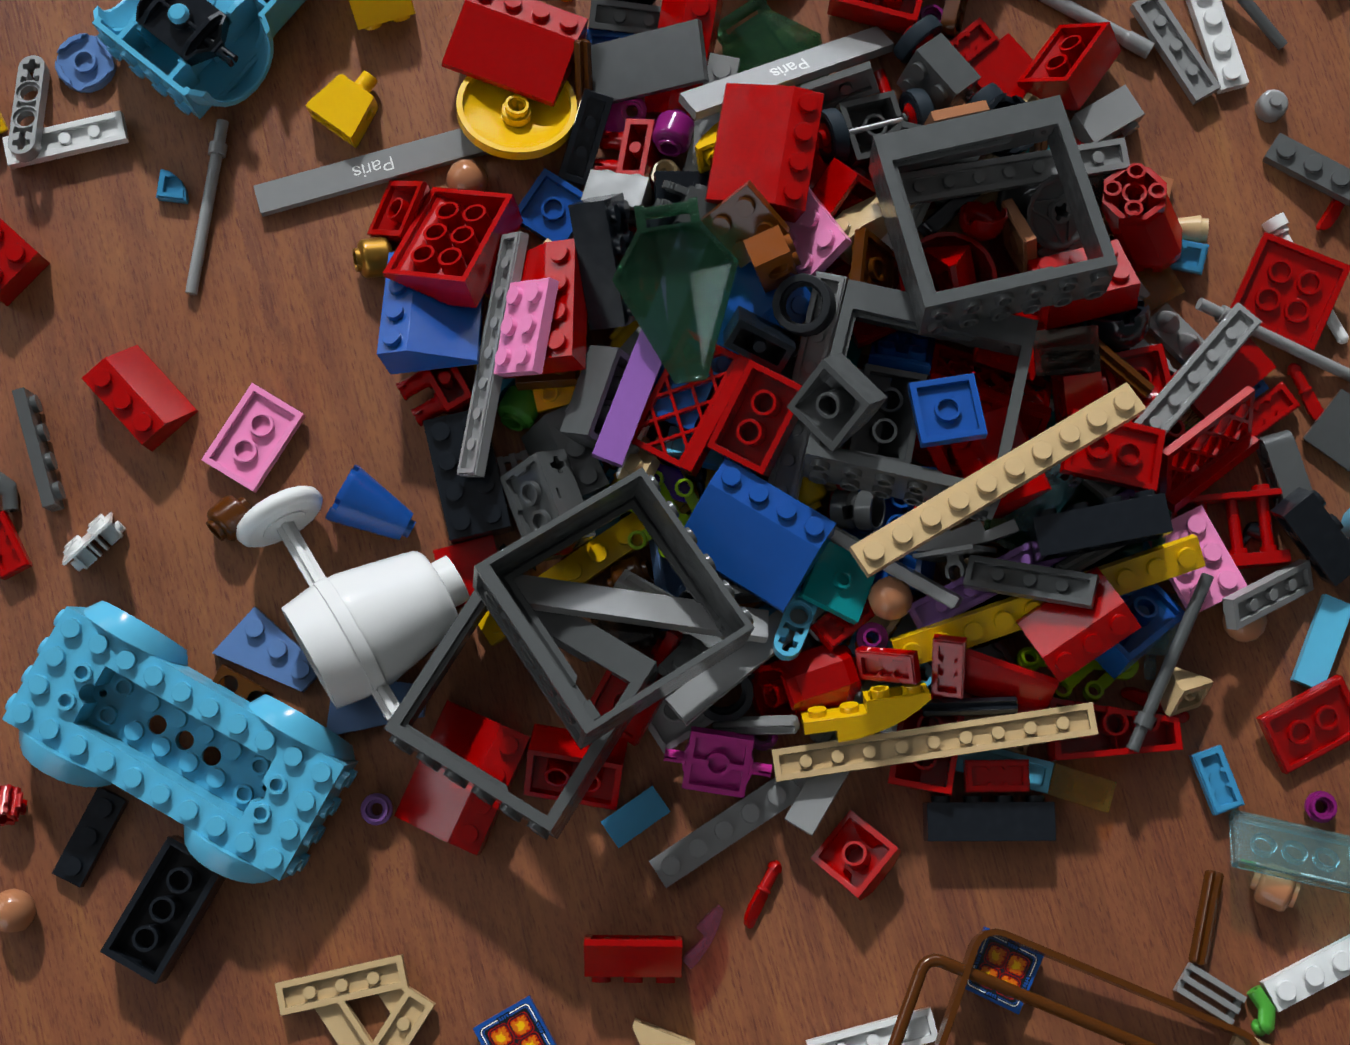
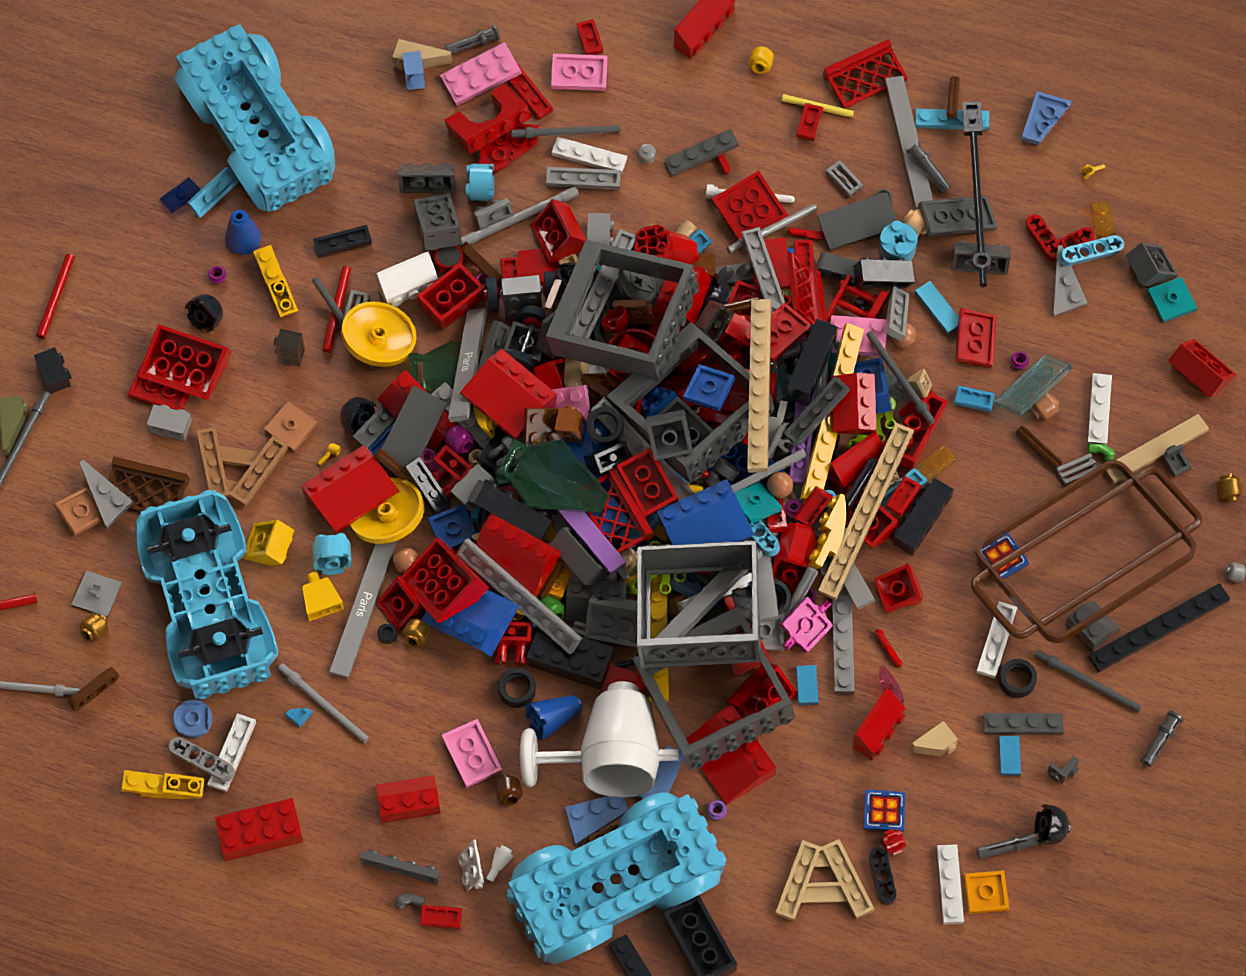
camera: 55 degrees left, 15 degrees down
(134, 569) = (501, 858): none -> white cone
(354, 223) = (387, 633): none -> black tile
(372, 414) = (517, 673): none -> black tyre
(410, 80) = (331, 554): none -> medium azure brick
(526, 327) = (521, 564): bright pink plate -> none
(948, 666) = (833, 477): plate -> none

